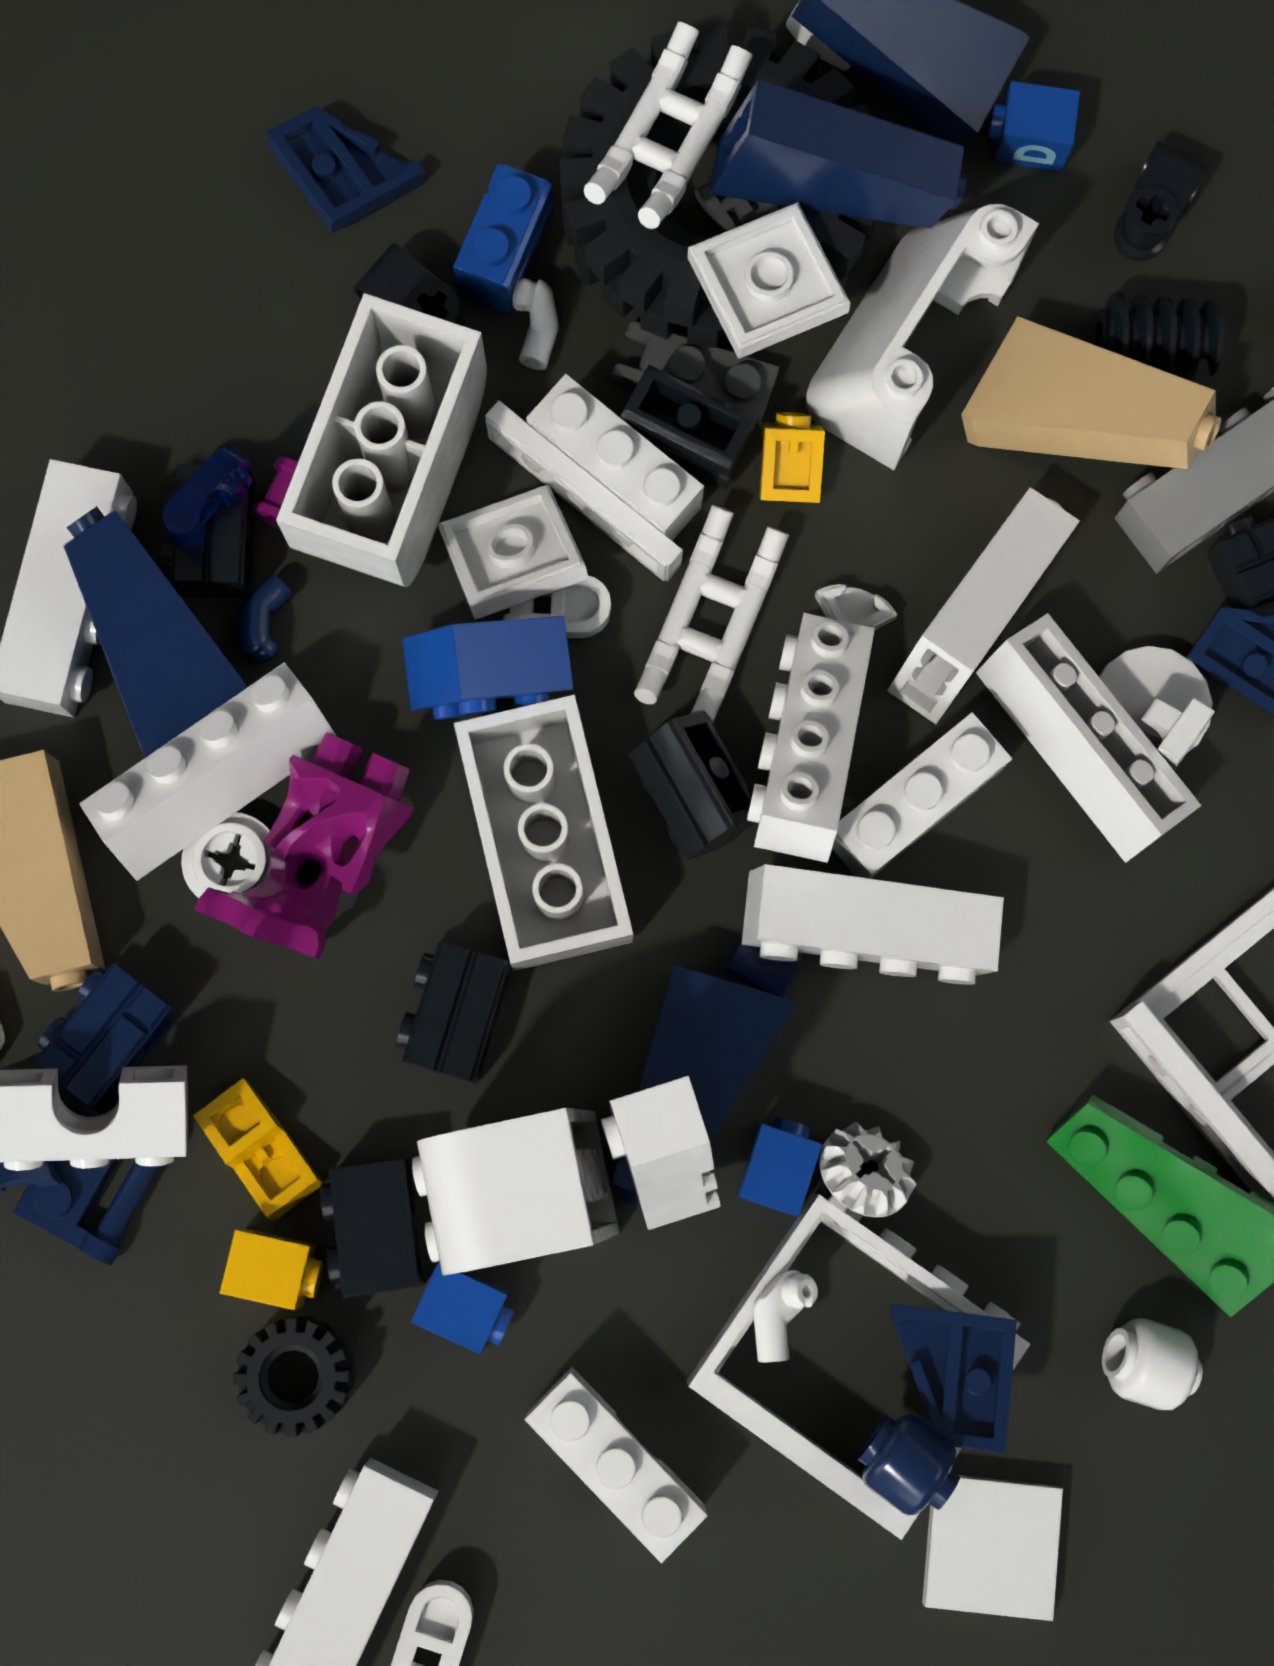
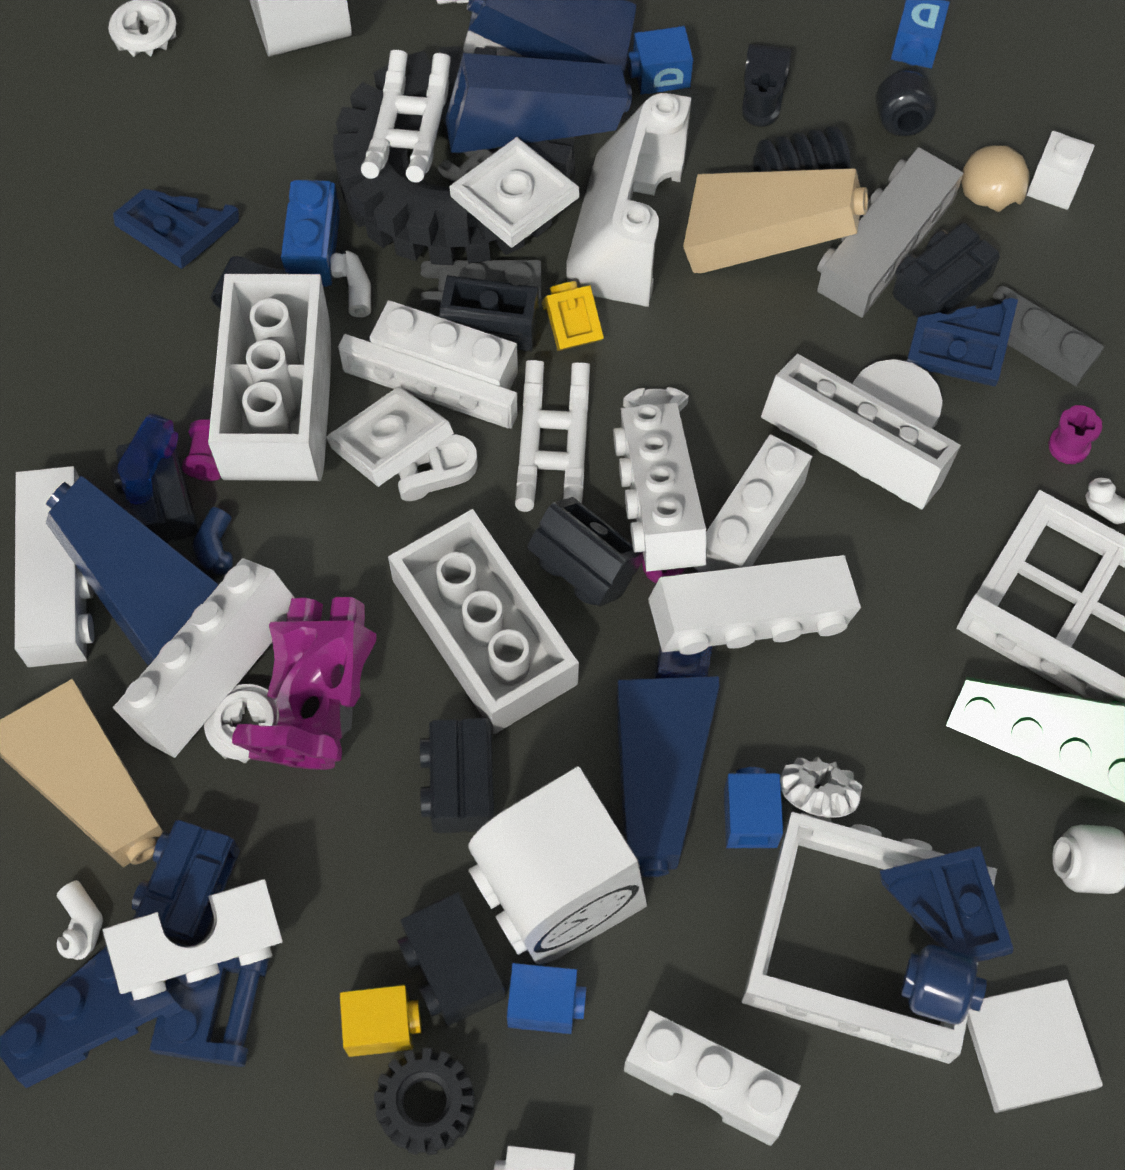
camera: 15 degrees left, 15 degrees down
(258, 1149) = (337, 934): yellow slope -> none
(474, 664) = (394, 509): blue brick -> none
(664, 1150) = (656, 795): white wedge -> none
(776, 1308) = (792, 905): white arm -> none
(982, 605) = (747, 371): white slope -> none
(1173, 729) = (920, 401): white tile -> none

